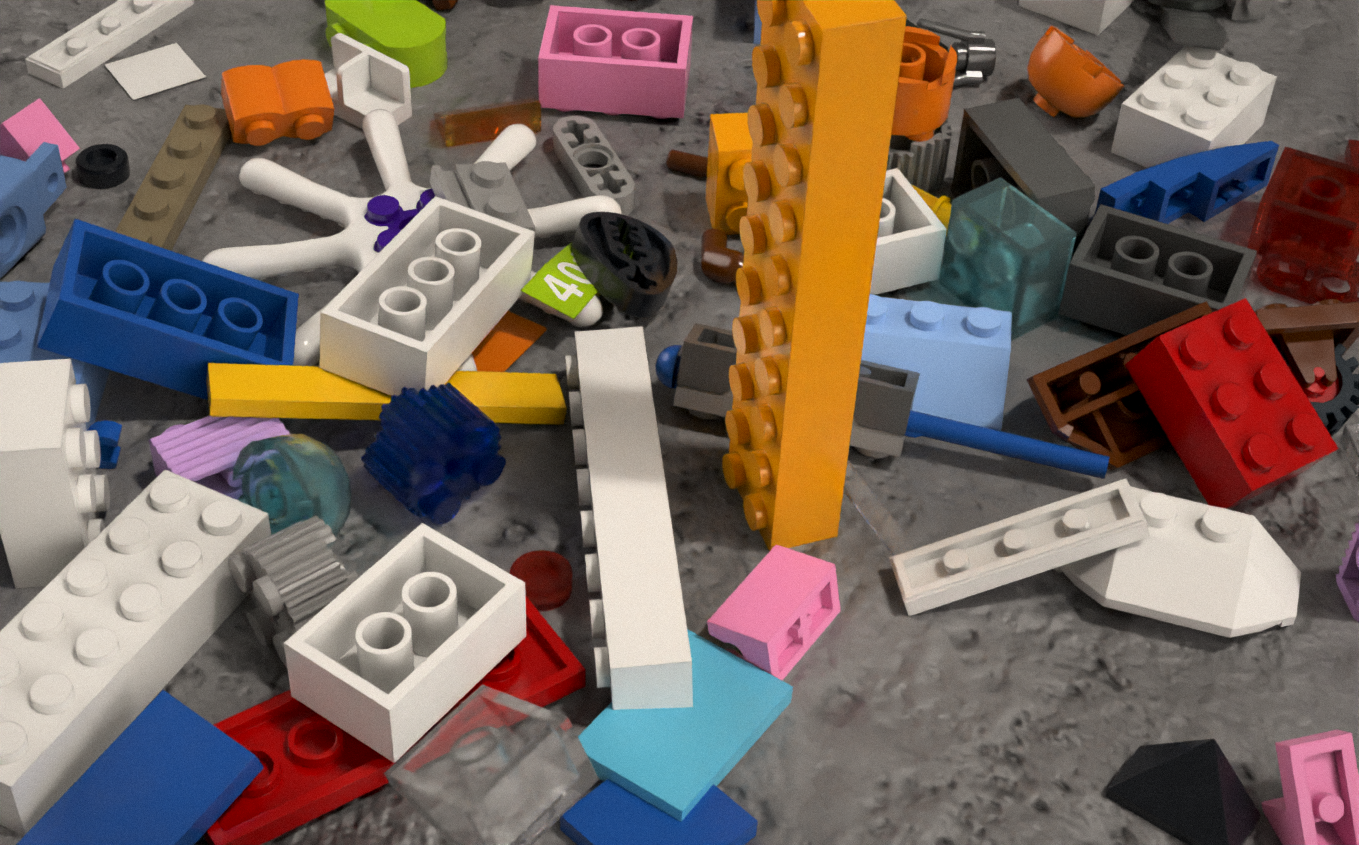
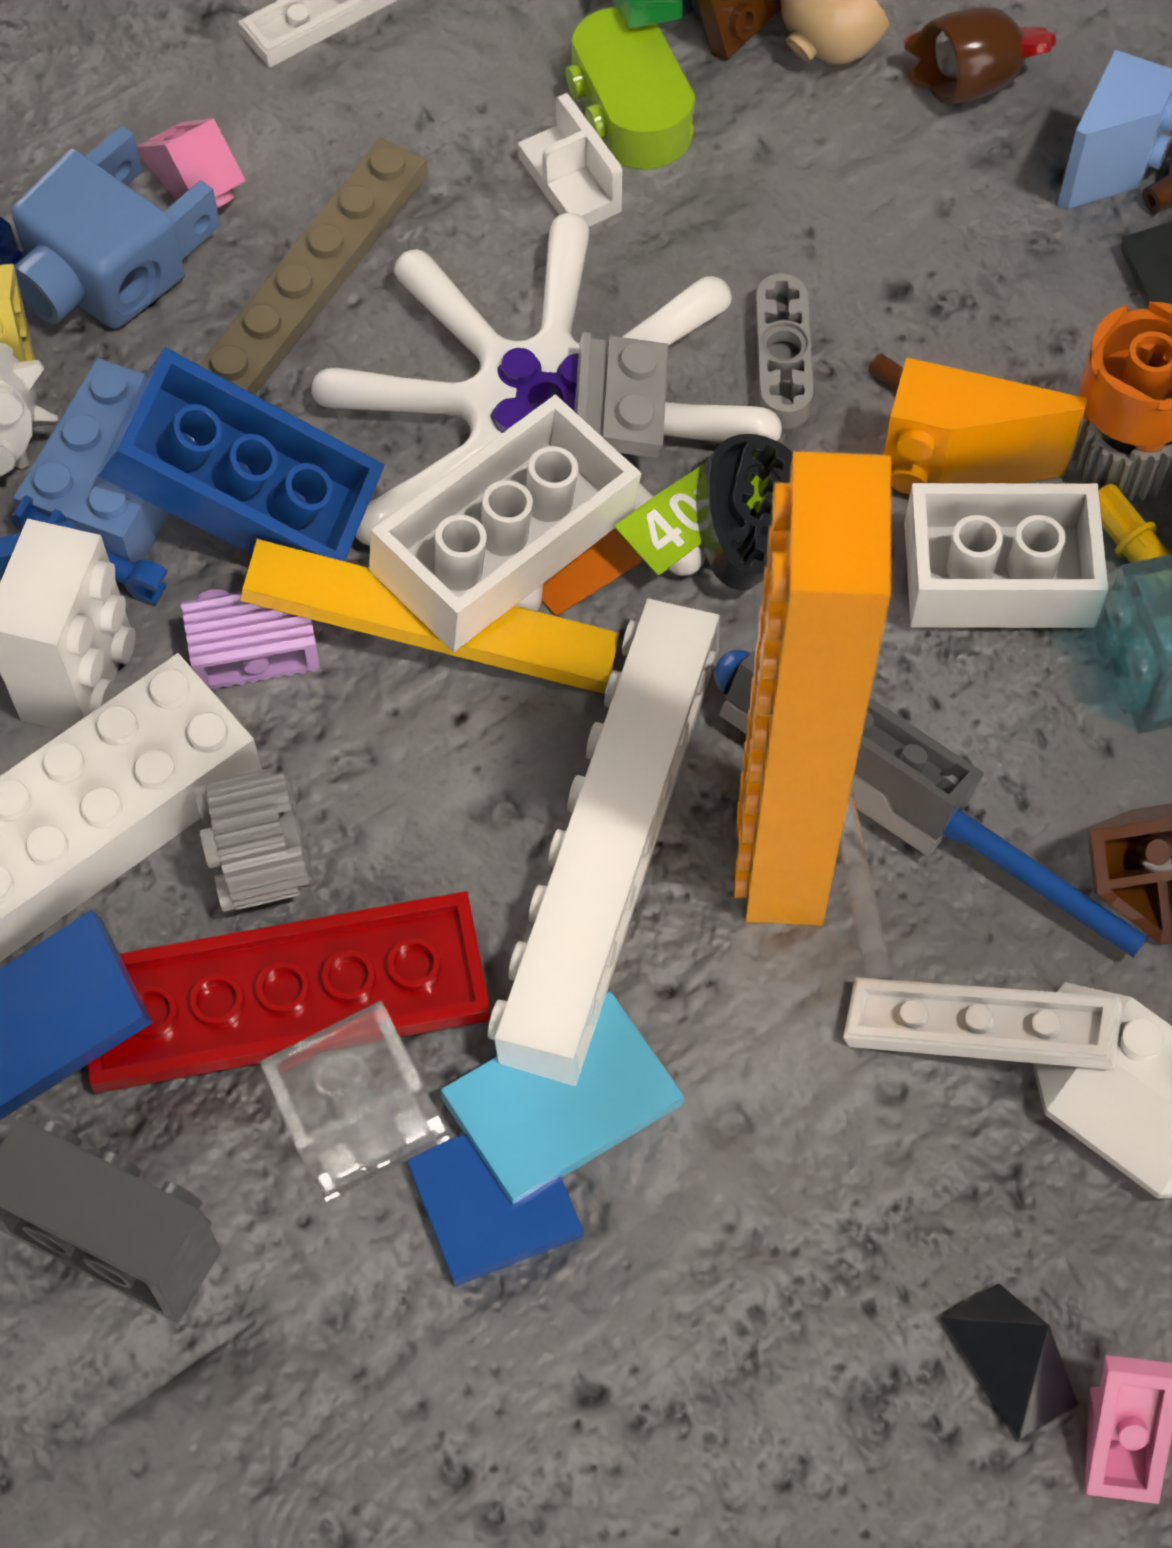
camera: 25 degrees right, 20 degrees up
(102, 166) = (269, 199): black tile -> none
(155, 71) = (371, 68): white sticker -> none
(277, 101) = (471, 169): orange brick -> none
(294, 481) = (298, 711): clear light blue cylinder -> none
(406, 641) = (323, 937): white brick -> none
(434, 451) = (445, 707): clear blue brick -> none
(486, 121) = (697, 247): clear orange slope -> none
(546, 578) = (501, 882): clear red tile -> none
(615, 62) = (865, 211): bright pink brick -> none
(778, 610) = (706, 1007): bright pink hinge -> none
(954, 349) = (1031, 742): light blue slope -> none

